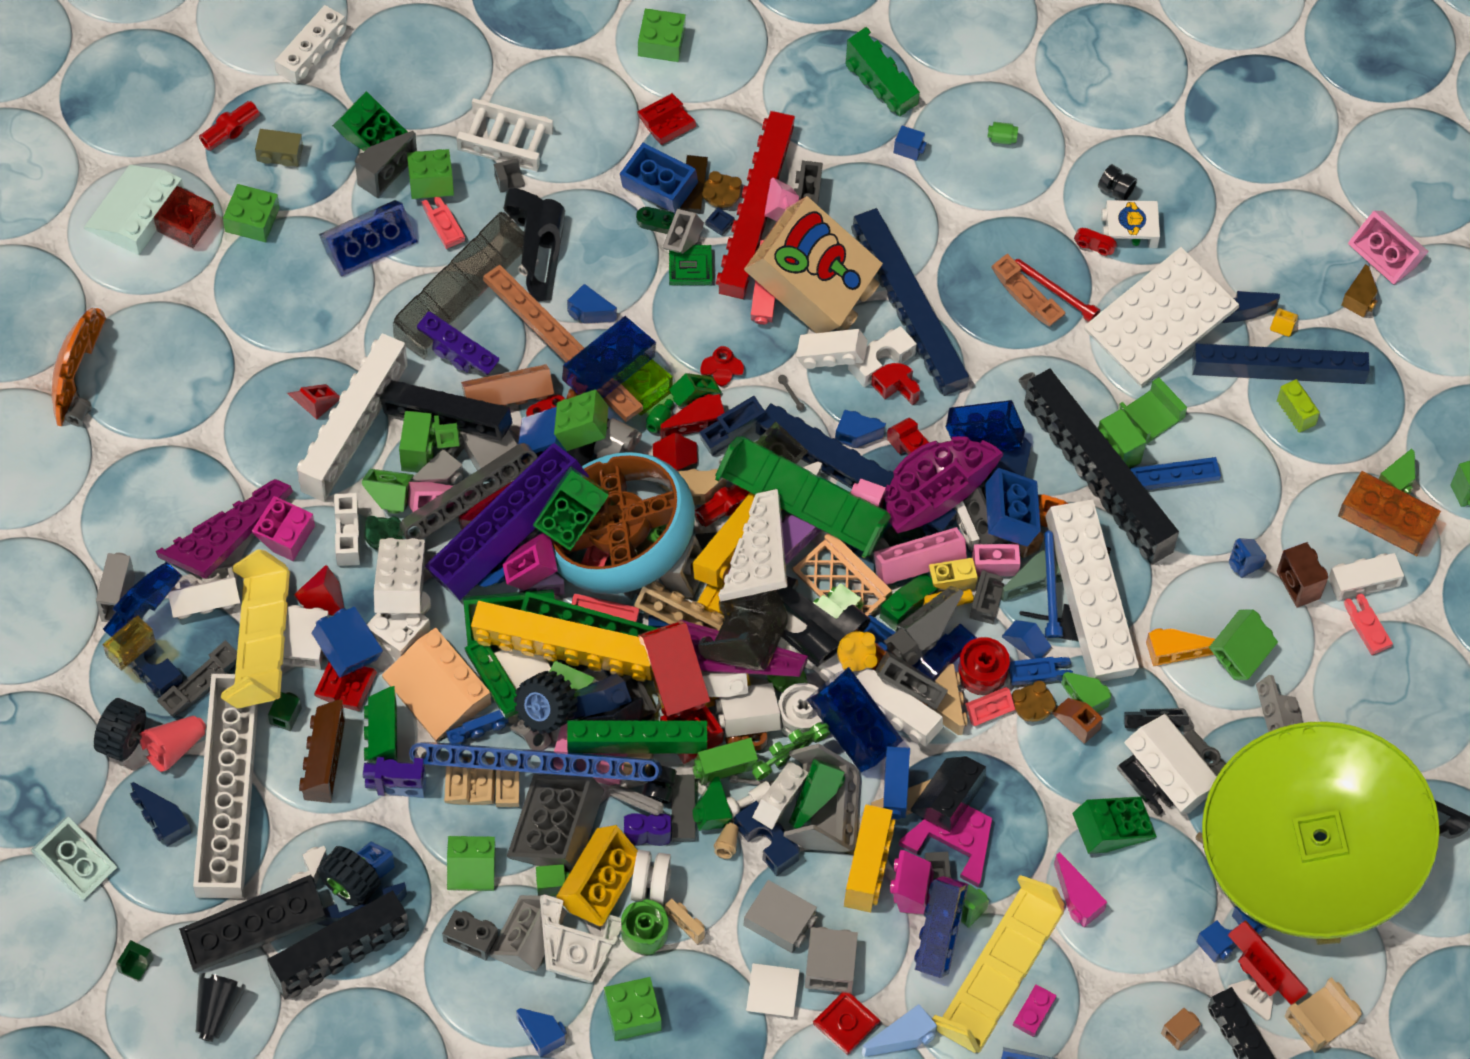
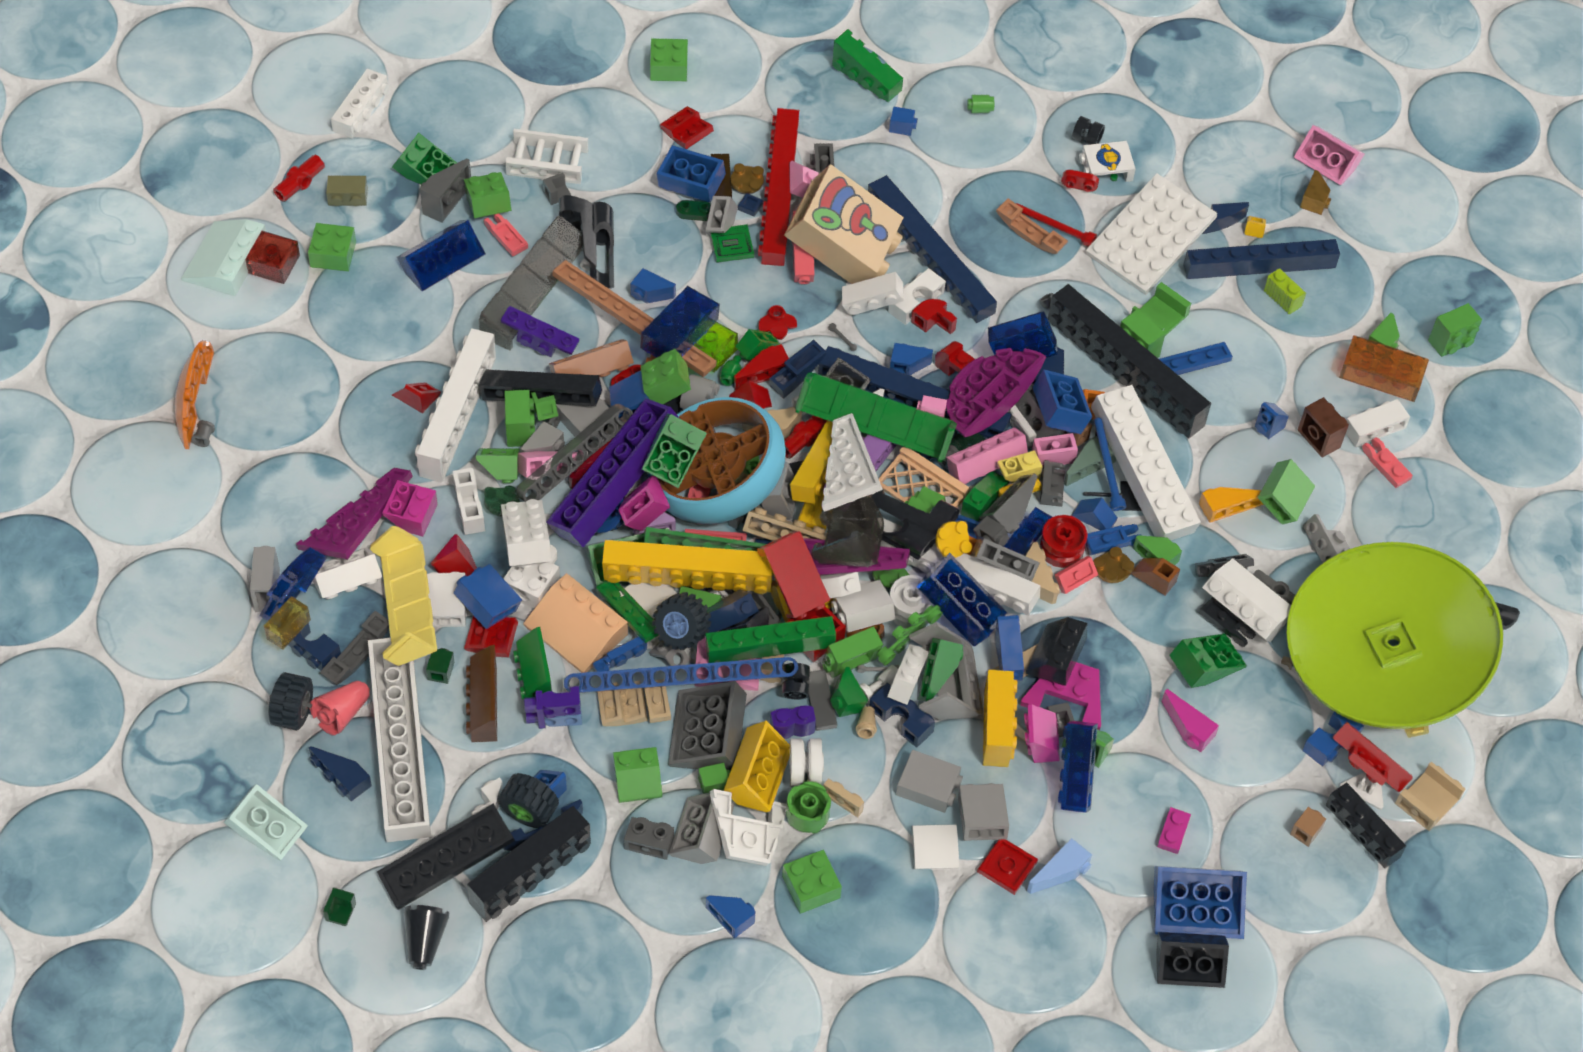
camera: 10 degrees left, 5 degrees down
(636, 799) = (778, 697): light grey axle -> none
(1002, 965) = (1136, 794): light yellow piece -> none

